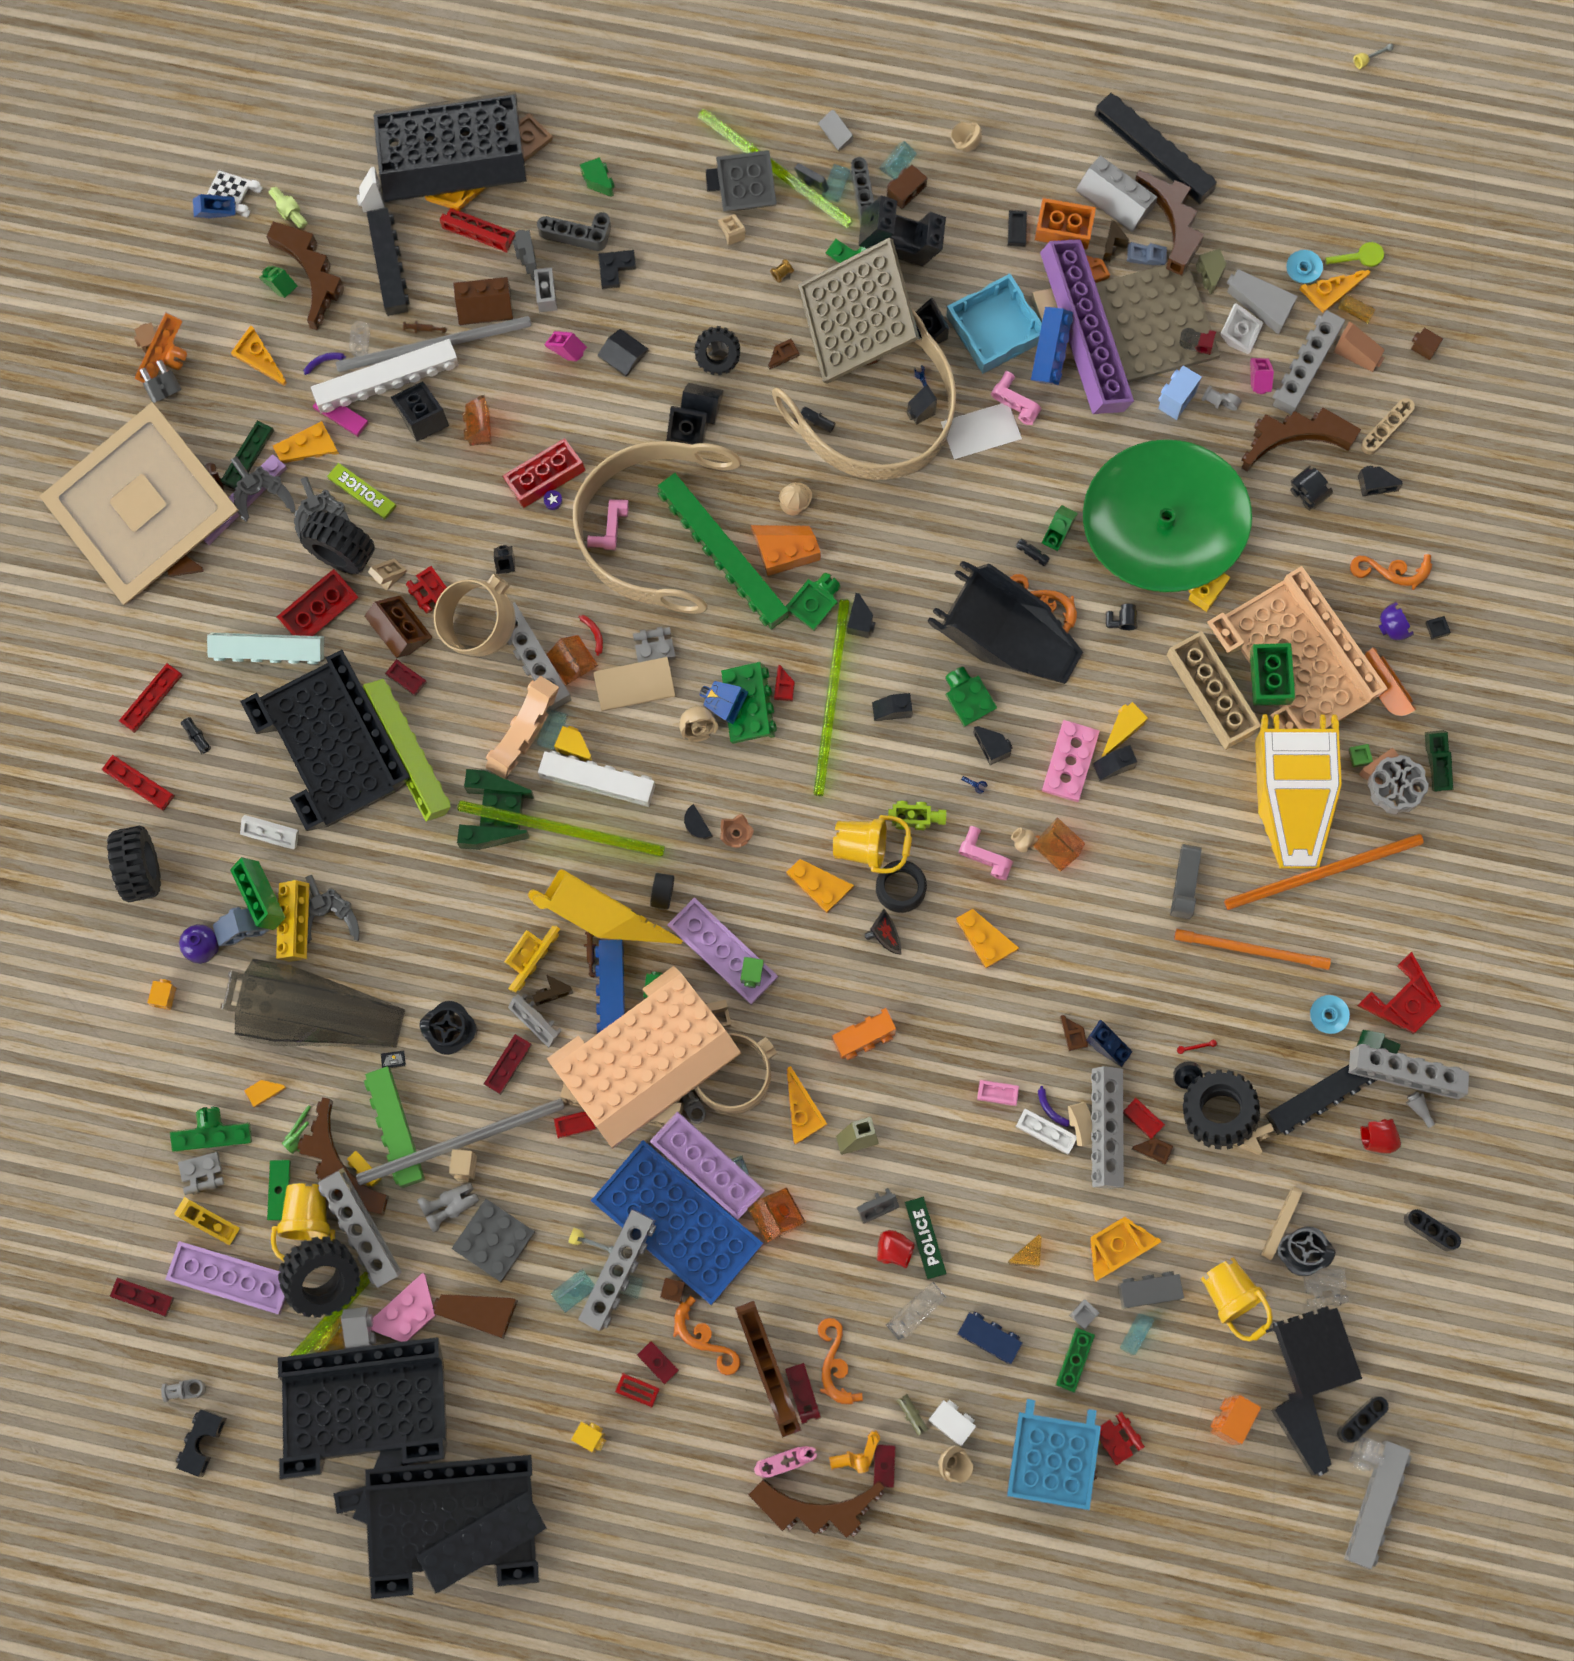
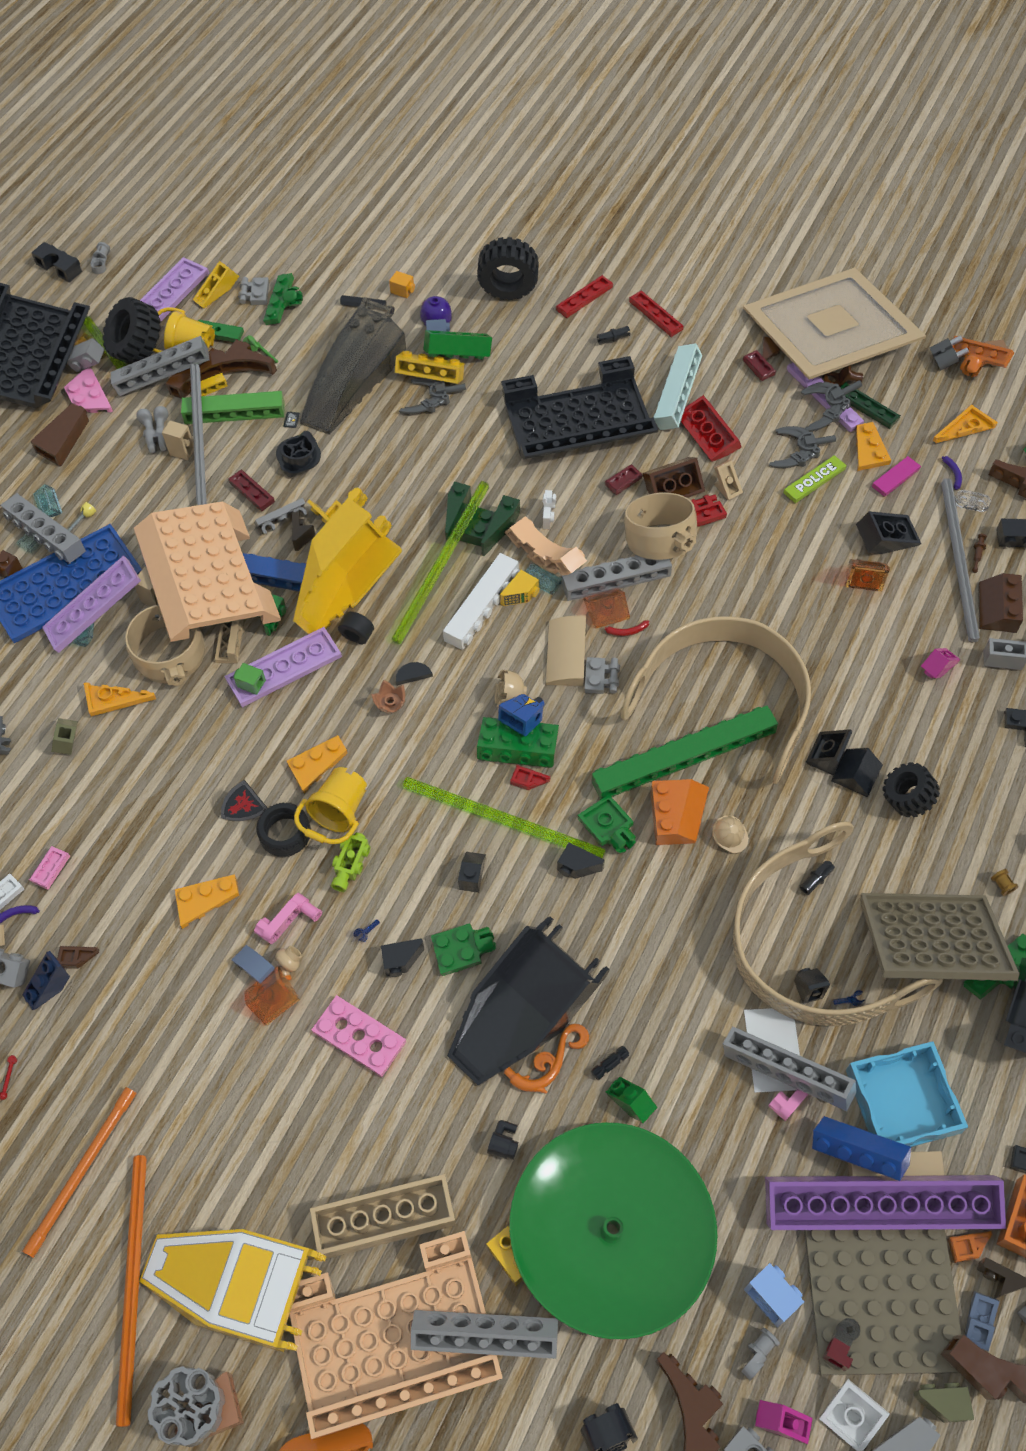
camera: 105 degrees right, 15 degrees down
(141, 1297) = (178, 245): dark red plate -> none
(196, 1034) = (356, 301): none -> black axle
(213, 572) = (759, 365): none -> dark red plate
(263, 1091) = (300, 334): light orange tile -> none
(269, 832) = (513, 366): white plate -> none
(337, 542) = (759, 436): black tyre -> none
(384, 376) = (929, 511): white brick -> none
(422, 782) = (554, 464): lime brick -> none
(463, 742) = (549, 503): none -> white plate
(493, 1240) = (114, 457): dark grey plate -> none
(504, 559) = (718, 567): black brick -> none
(544, 473) = (804, 620): red slope -> none
(553, 500) = (775, 622): dark purple tile -> none
(616, 509) = (747, 667): bright pink beam -> none
(622, 352) = (928, 714): black slope -> none
(776, 1215) = (30, 656): clear orange slope -> none
(783, 353) = (903, 863): reddish brown tile -> none
(864, 1035) = (154, 763): orange wedge -> none
(933, 321) = (914, 1022): black slope -> none
(1004, 407) = (790, 1068): none -> light grey brick
(1036, 868) = (253, 964): none -> sand blue slope
(1115, 763) = (337, 1082): black slope -> none
(1127, 723) = (377, 1103): yellow slope -> none
(1185, 884) = (177, 1116): dark grey beam -> none
(1268, 541) = (484, 1334): none -> light grey brick
(1272, 674) = (375, 1290): green brick -> none
(1360, 755) = (249, 1380): bright green plate -> none

